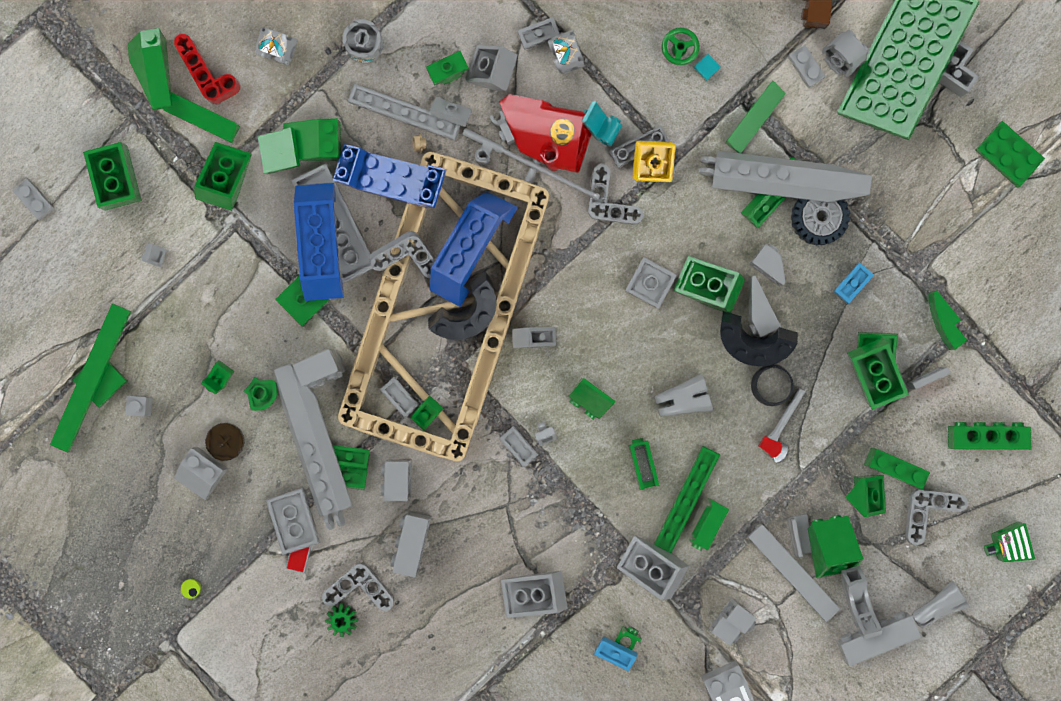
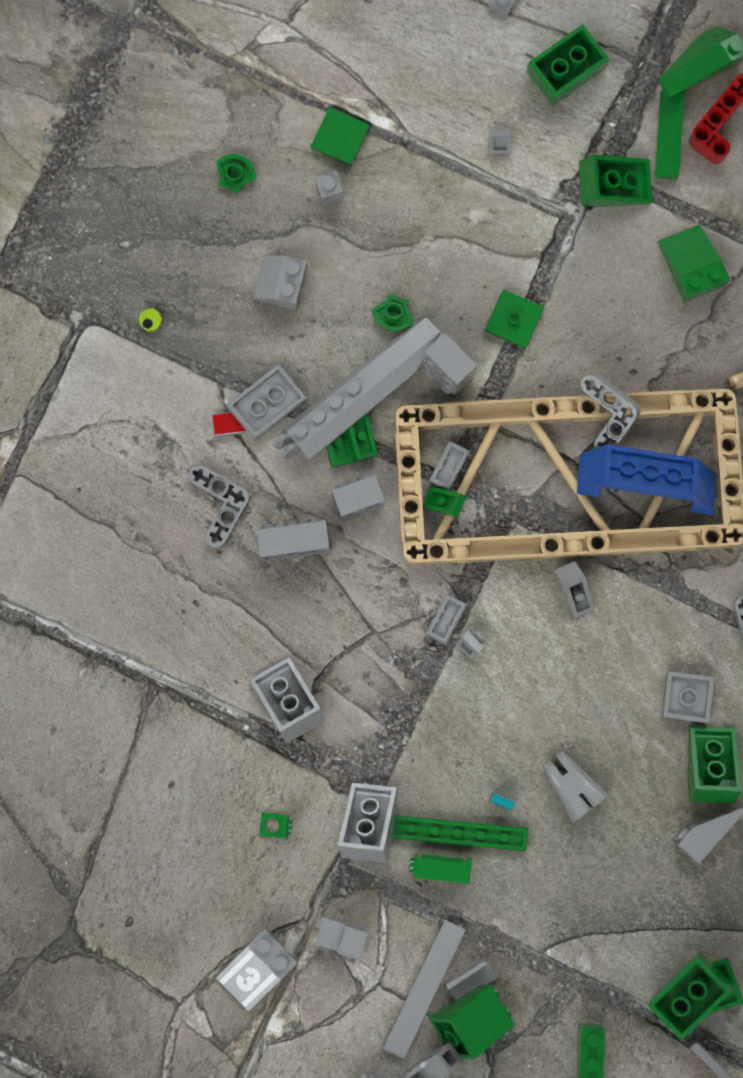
camera: 75 degrees right, 5 degrees down
(90, 378) = (339, 125): green tile -> none
(96, 475) = (235, 171): none -> green animal
(217, 378) = (393, 260): green bracket -> none
(224, 441) = (325, 295): dark brown tile -> none
(279, 151) = (667, 231): tile -> none
(317, 241) = (585, 310): blue slope -> none
(335, 618) = (171, 502): green gear -> none
(352, 249) = (612, 320): light grey plate -> none
(389, 177) = (688, 360): slope -> none
(473, 319) = (566, 512): black brick -> none
(591, 399) = (532, 677): green slope -> none
(615, 653) = (255, 818): dark azure plate -> none
(643, 464) = (481, 767): green window -> none
(676, 458) = (501, 801): none -> teal tile
(754, 385) = (605, 878): black tyre -> none
(755, 350) = (659, 842): black brick -> none
(770, 444) = (559, 905): piece -> none
(868, 495) = (547, 1041): green slope -> none

